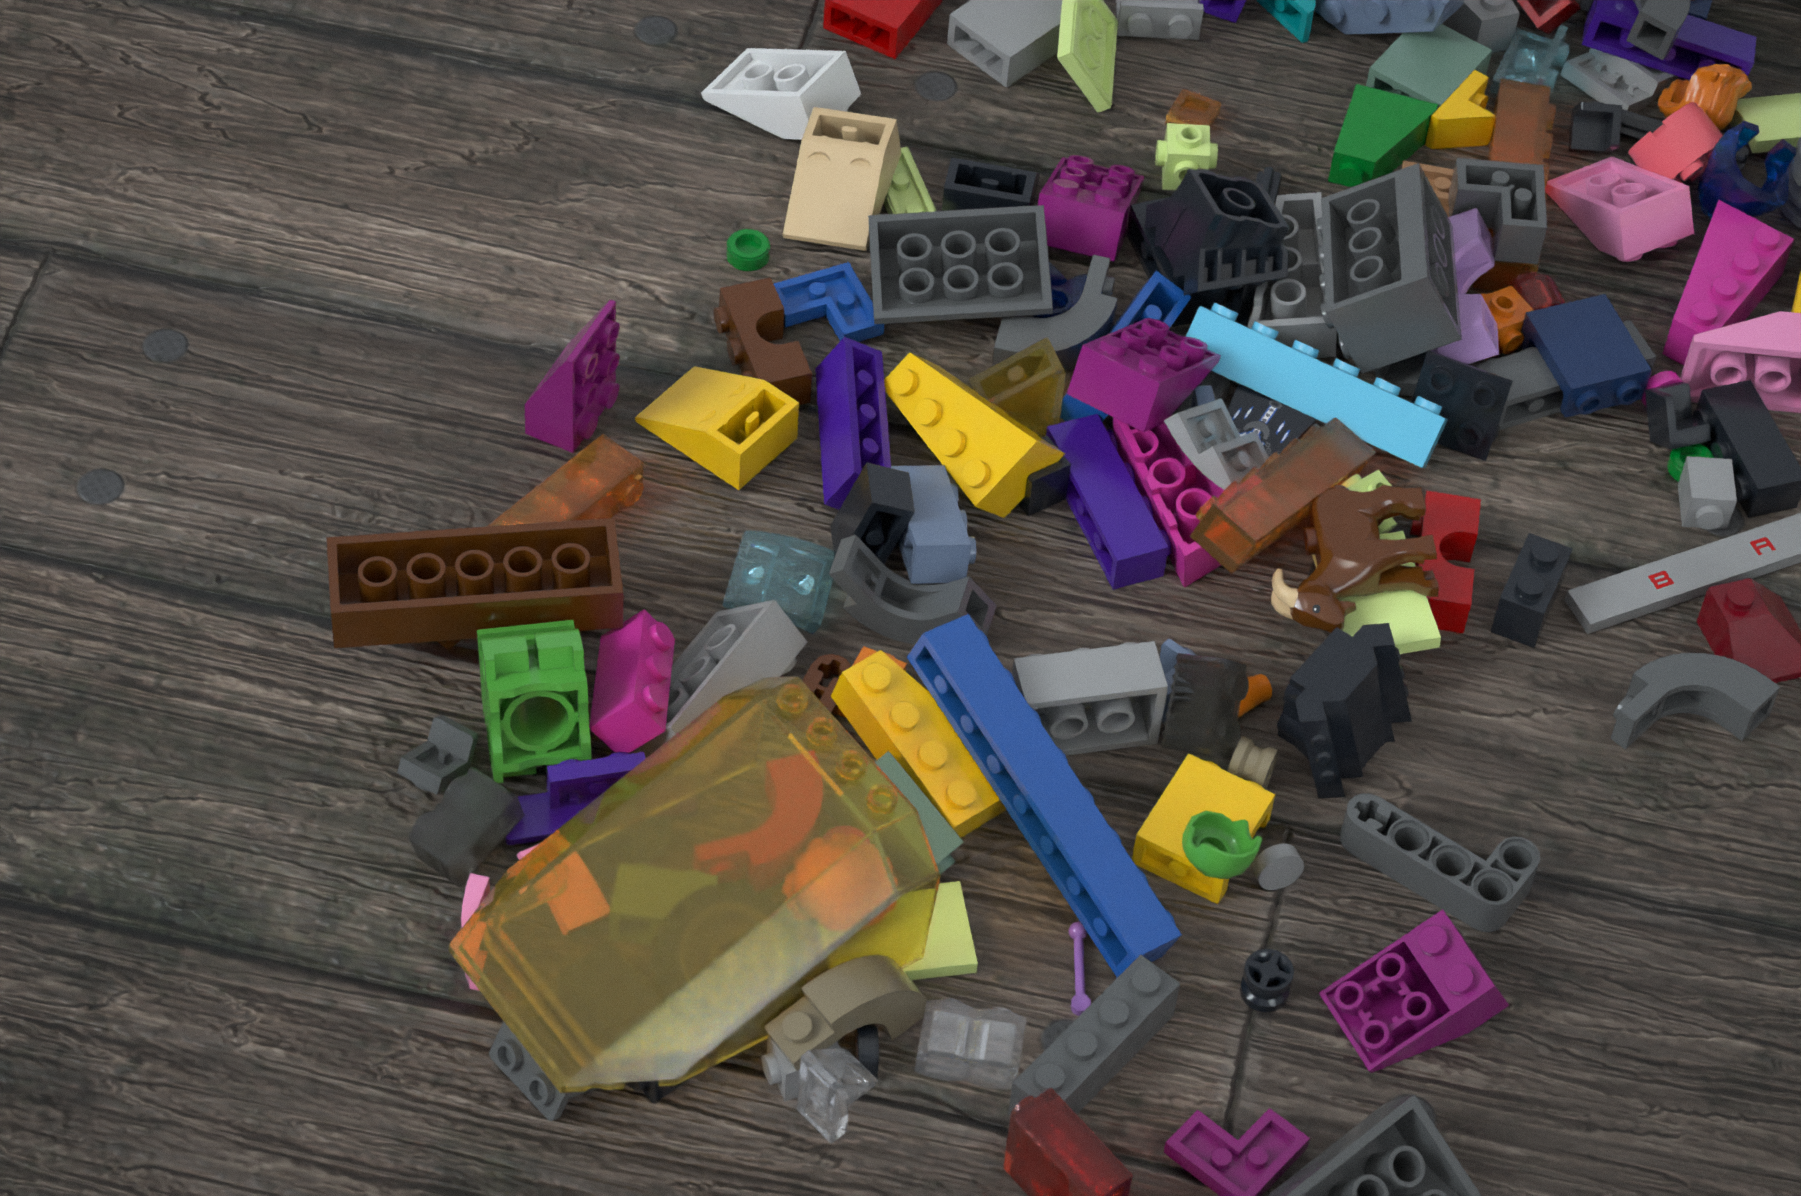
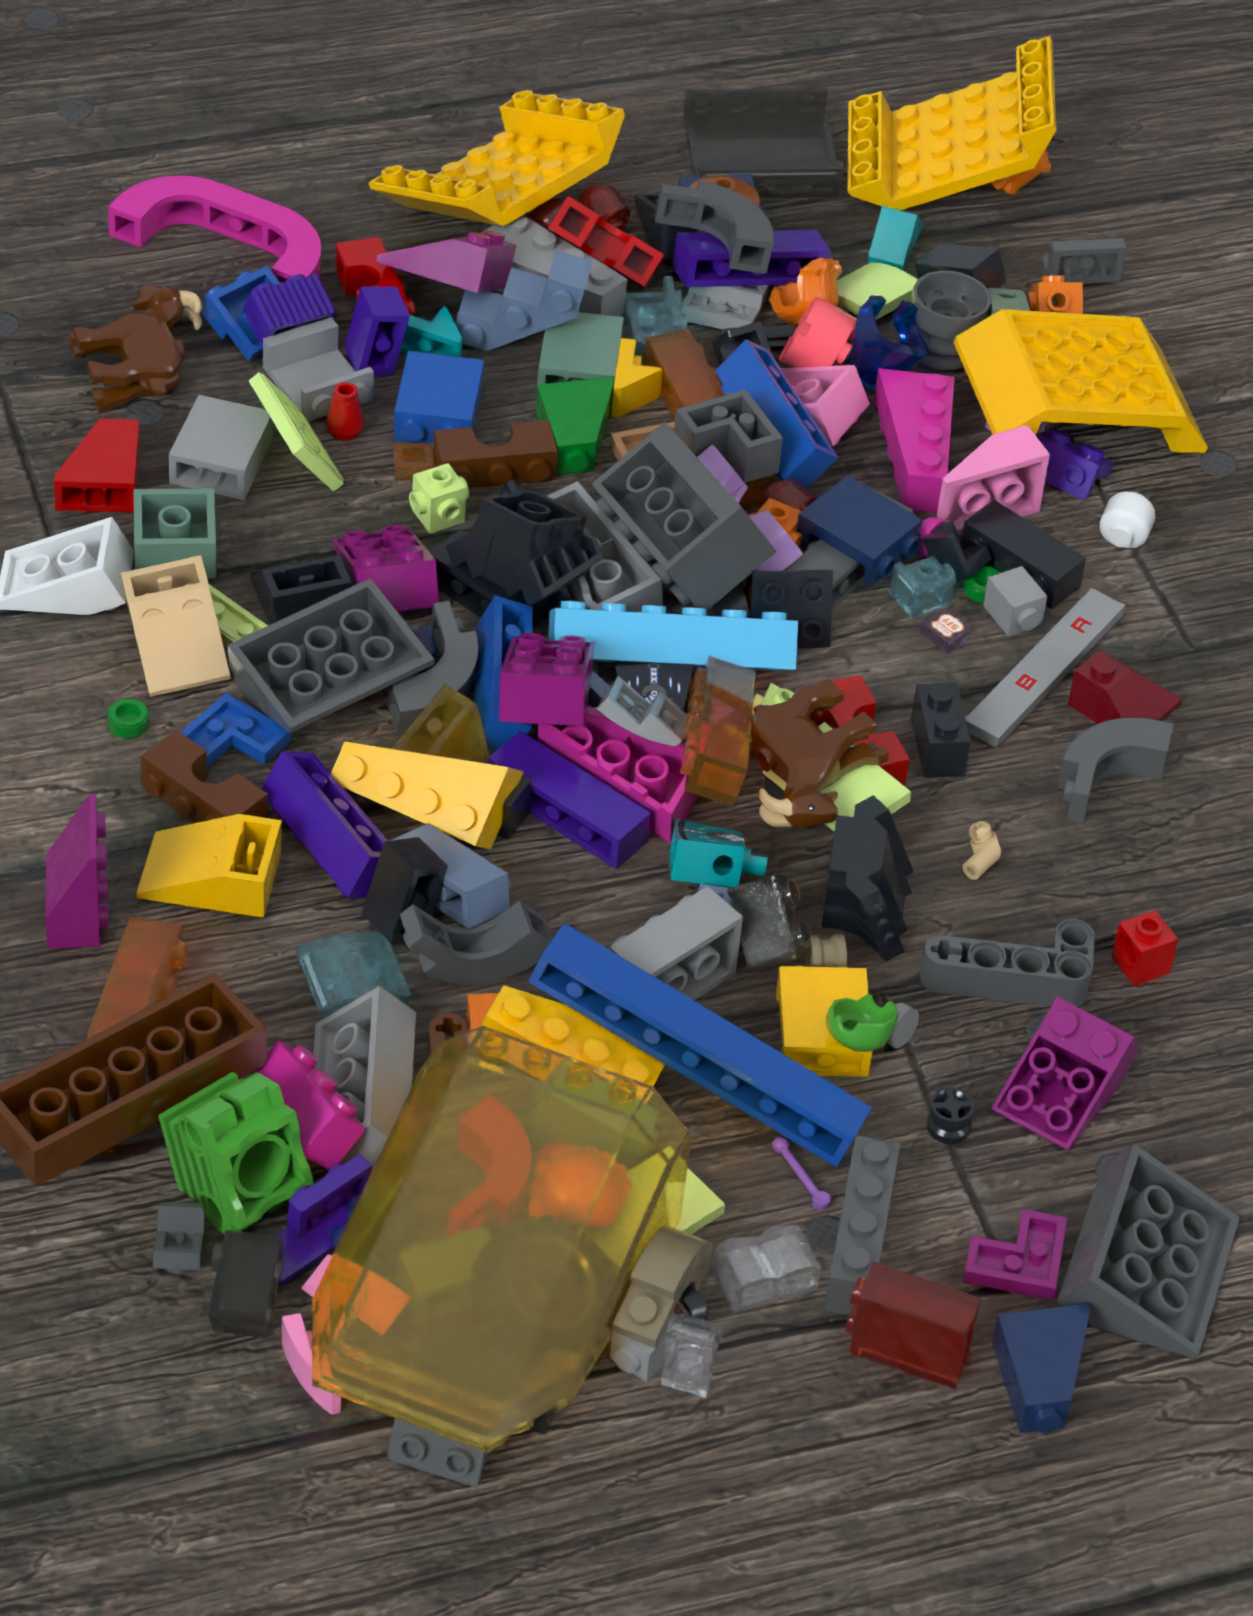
camera: 30 degrees left, 5 degrees down
(908, 86) = (174, 527): none -> sand green brick
(1153, 41) = (345, 413): none -> red cone
(1200, 614) = (696, 851): none -> teal torso
(1255, 62) = (437, 395): none -> blue brick
(1296, 152) = (525, 458): none -> reddish brown arch
(1498, 730) = (985, 850): none -> tan arm
(1577, 205) = (804, 447): none -> blue brick
(1589, 902) = (1144, 947): none -> red brick
(1617, 493) = (946, 630): none -> clear purple tile
(1621, 438) = (922, 585): none -> clear light blue brick

